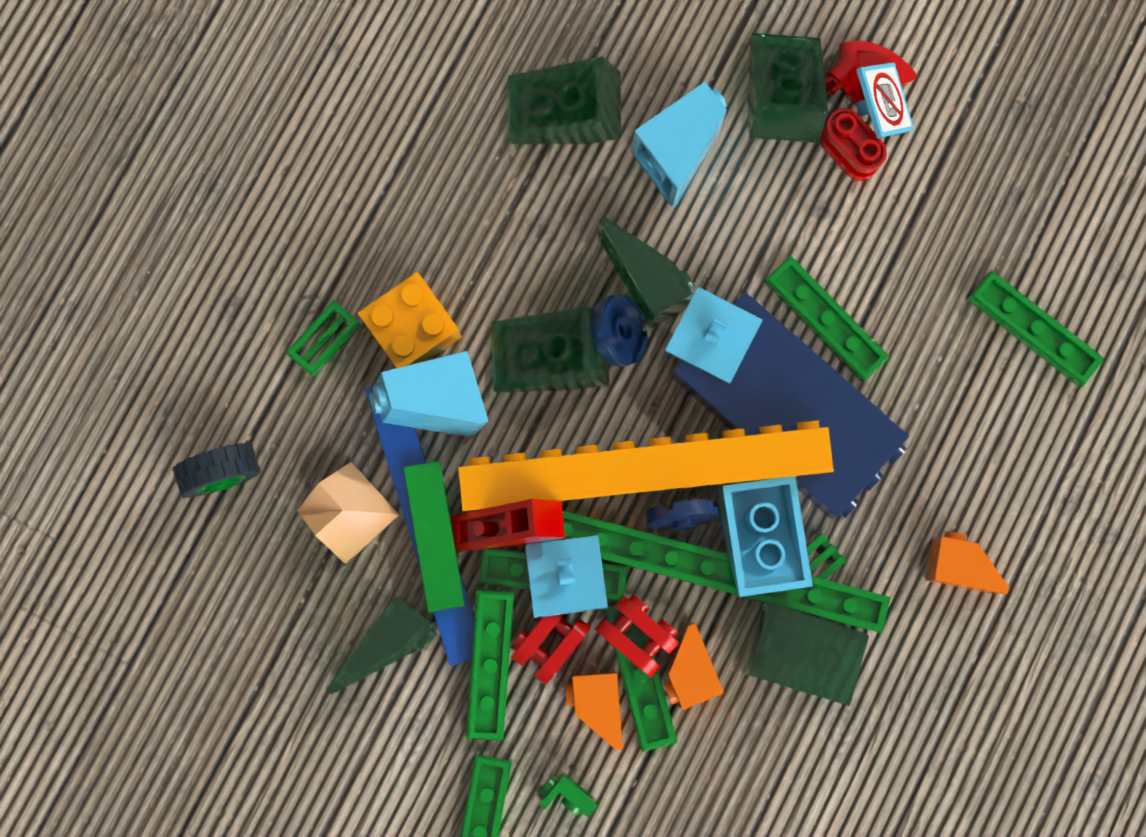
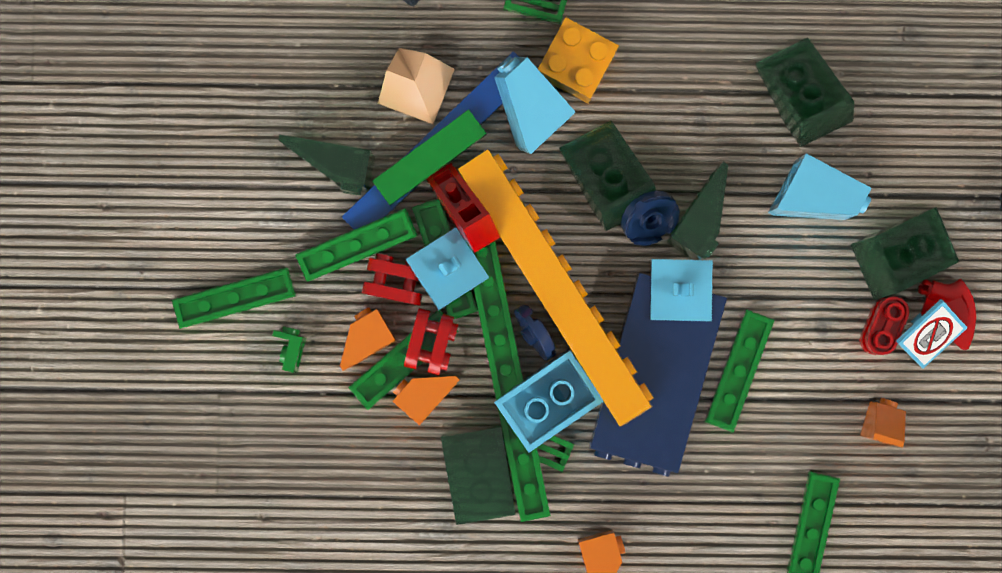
camera: 65 degrees right, 5 degrees up
(957, 194) = (885, 423): none -> orange slope

